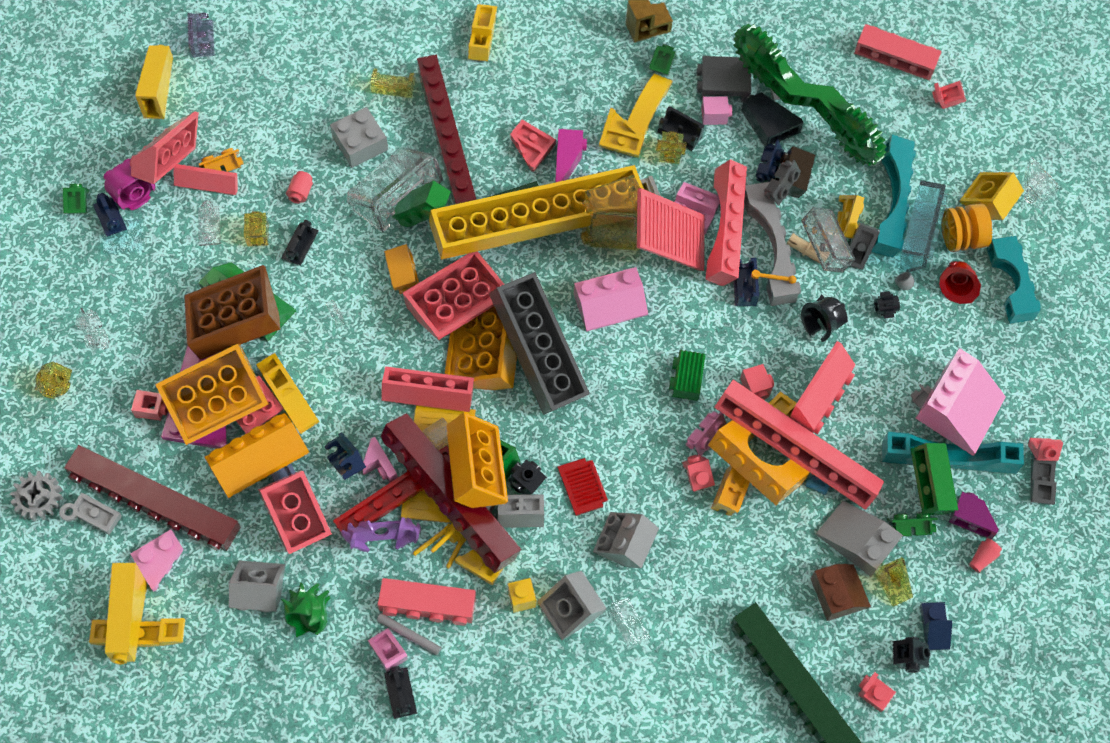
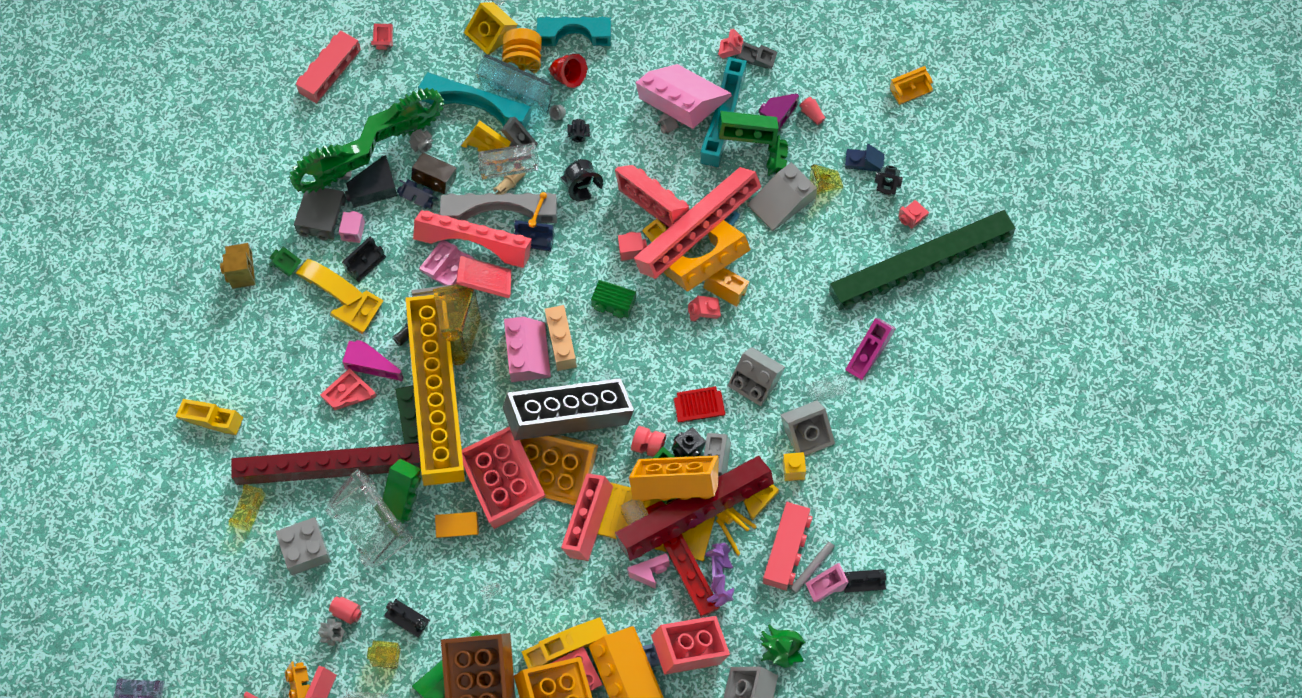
camera: 75 degrees left, 0 degrees up
(270, 176) = (331, 632): none -> light grey gear
(346, 457) = (642, 597): dark blue hinge -> none
(524, 437) = (647, 441): none -> coral wheel
(643, 323) = (560, 338): none -> light nougat arch
(671, 147) = (383, 270): clear yellow brick -> none
(688, 663) = (870, 348): none -> dark pink slope
(701, 439) = (674, 300): bright pink hinge -> none
(788, 174) = (452, 187): dark grey hinge -> none
(832, 153) = (421, 141): none -> light grey gear
(839, 590) = (827, 222): copper slope -> none
(1053, 668) = (911, 85): none -> light orange hinge

